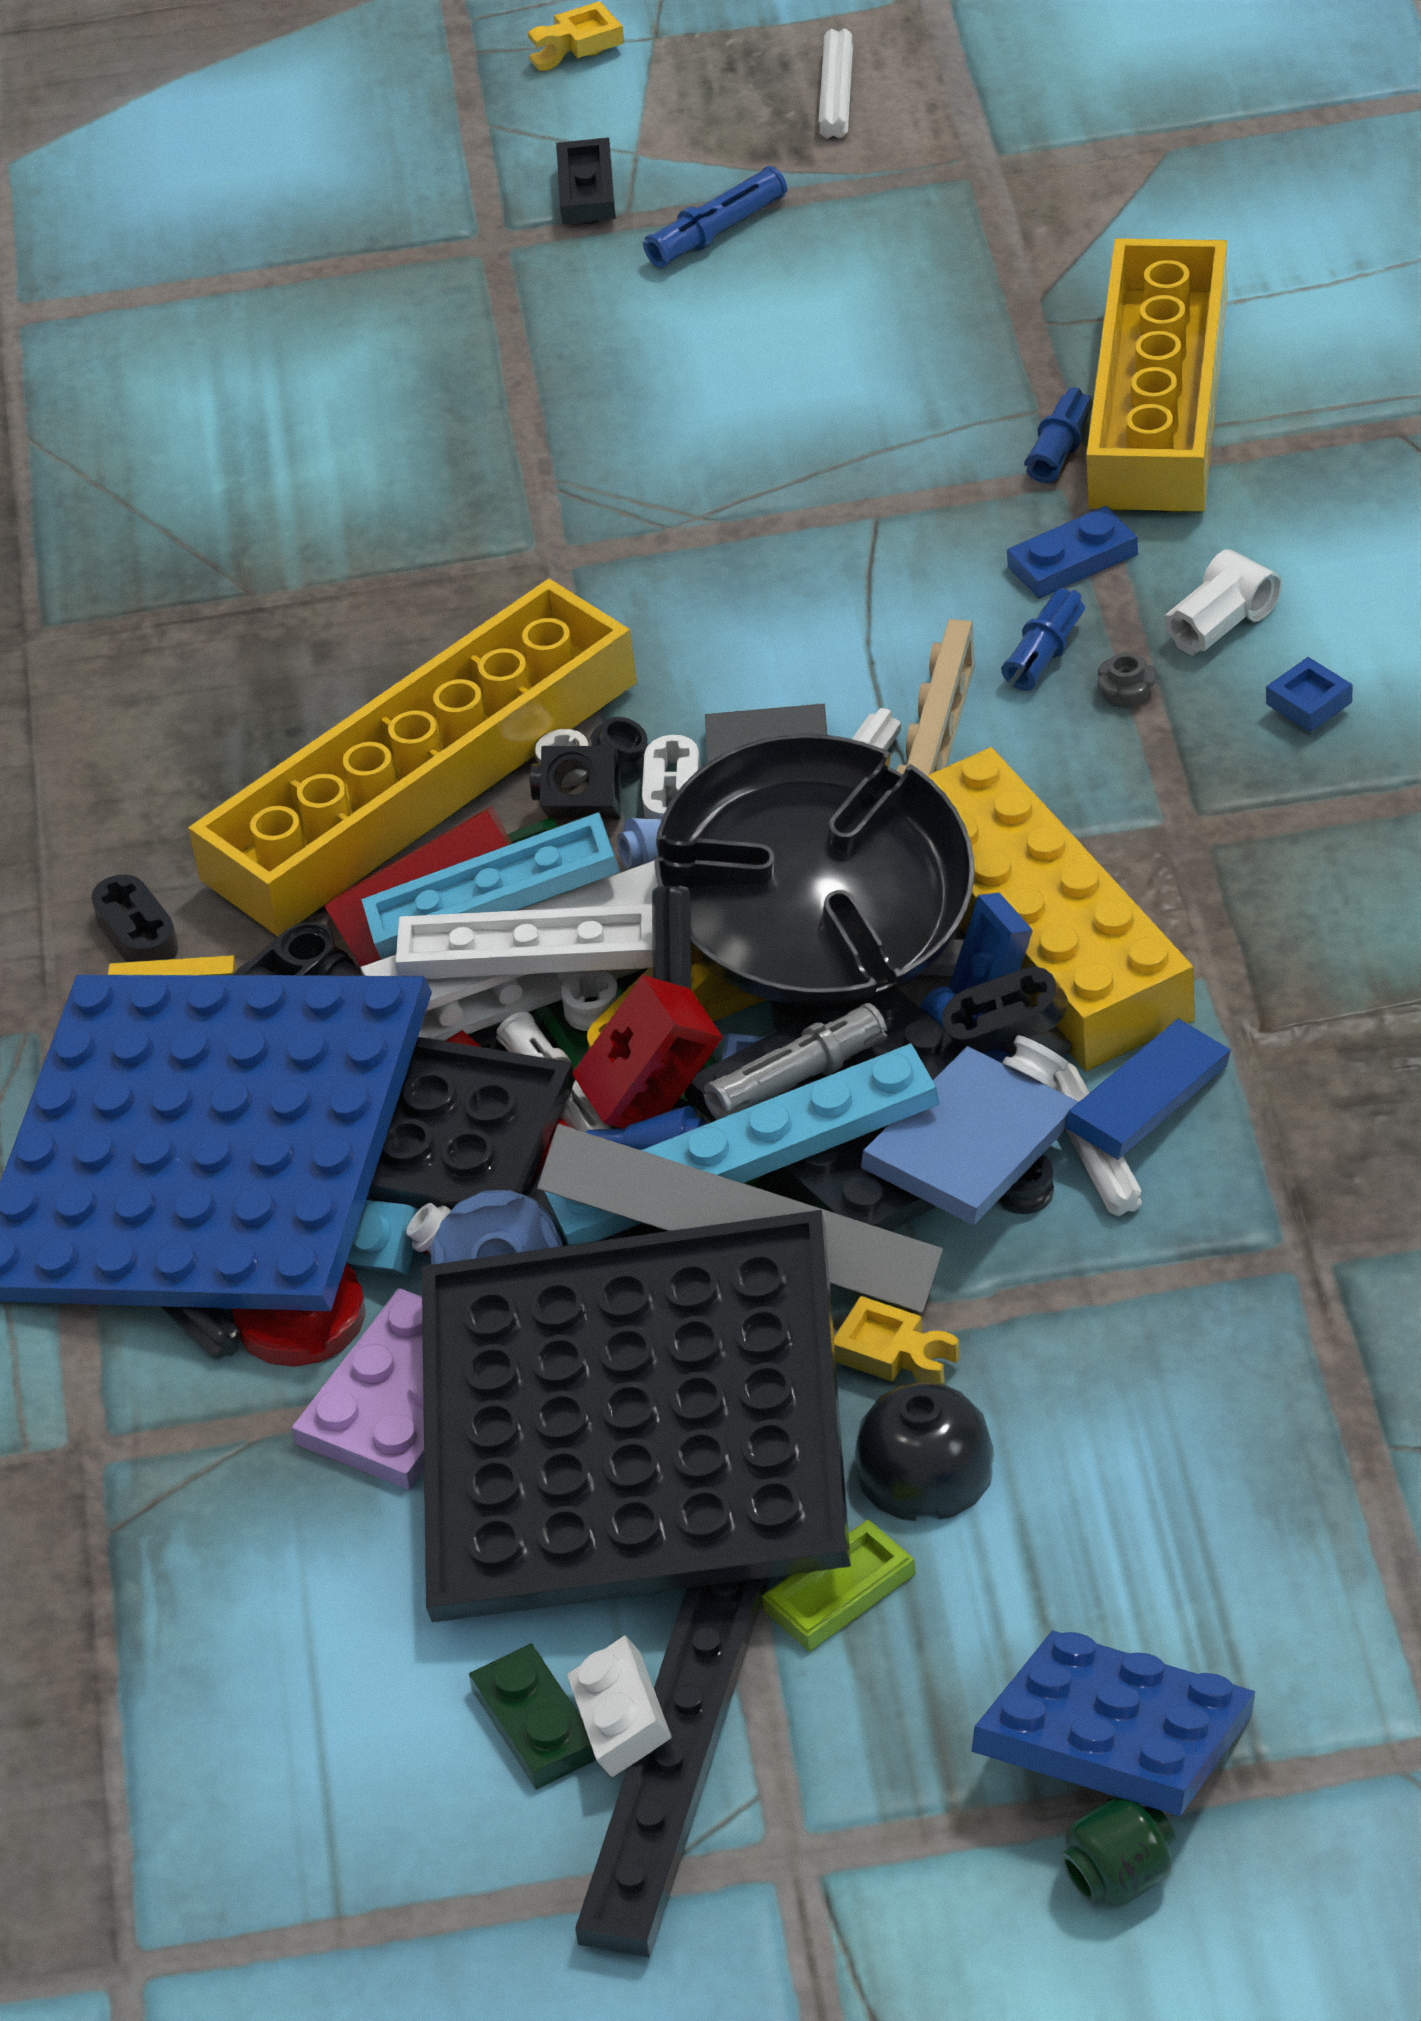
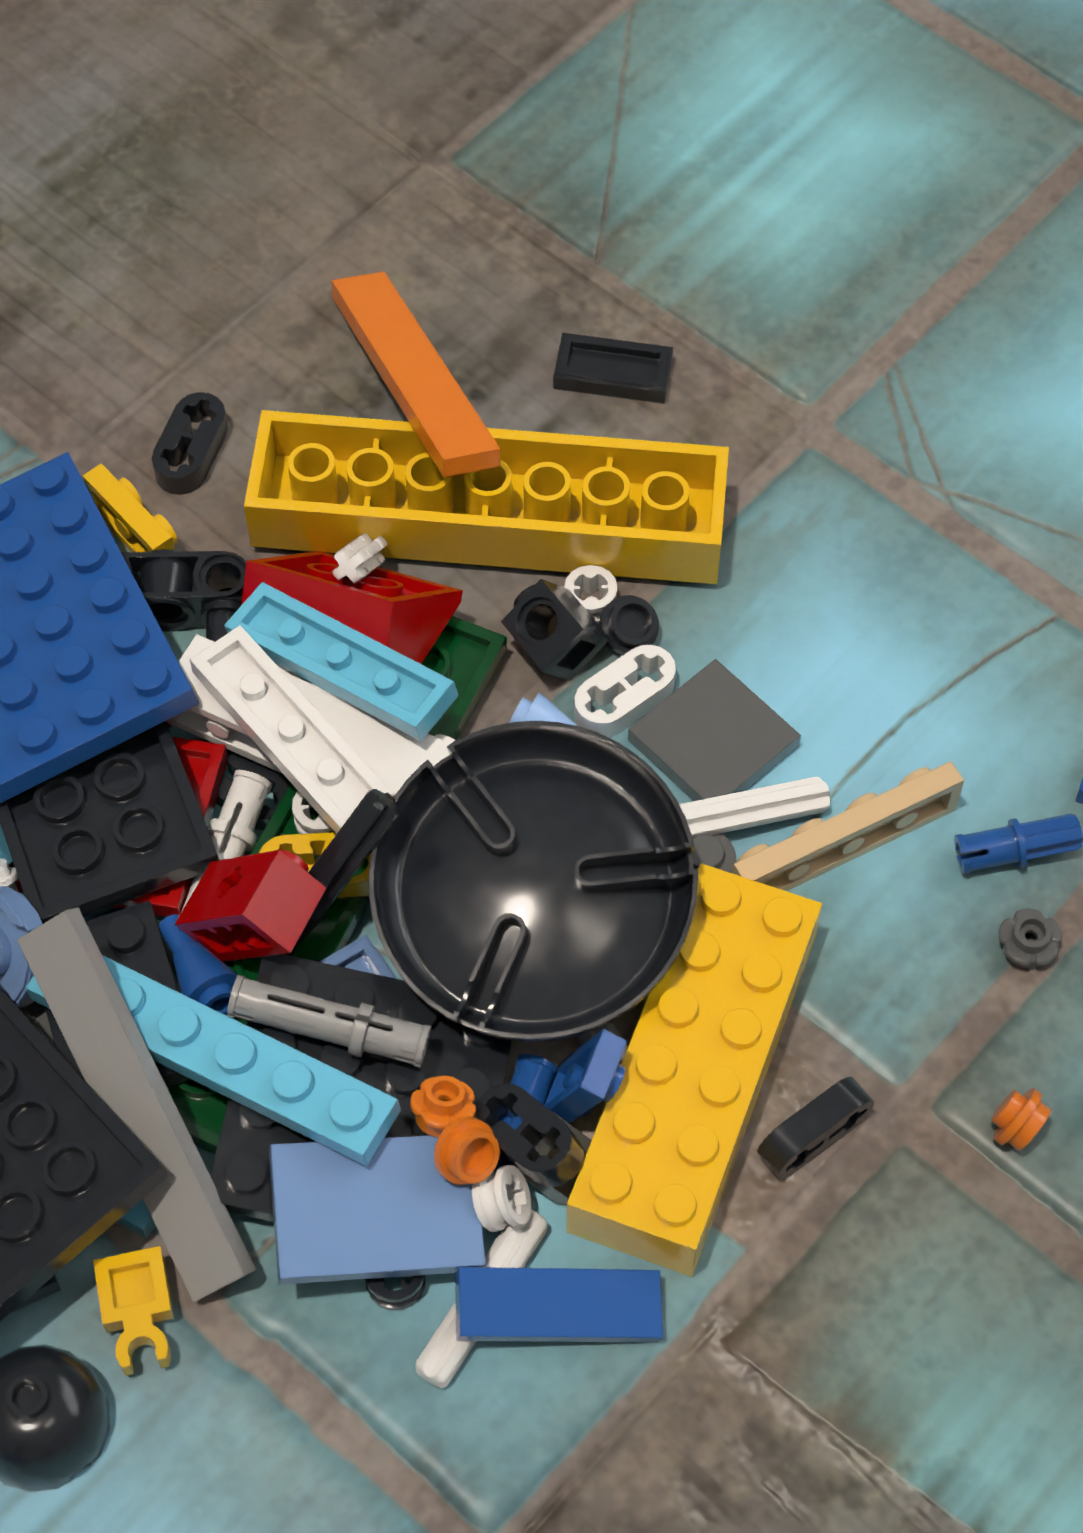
camera: 45 degrees right, 15 degrees up
(256, 724) = (416, 375): none -> orange tile
(369, 635) = (613, 368): none -> black tile
(398, 841) = (359, 558): none -> white axle
(934, 1041) = (440, 1103): none -> orange plate
(987, 1042) = (466, 1151): none -> orange plate
(1154, 871) = (815, 1127): none -> black beam
(1262, 759) = (1020, 1118): none -> orange plate

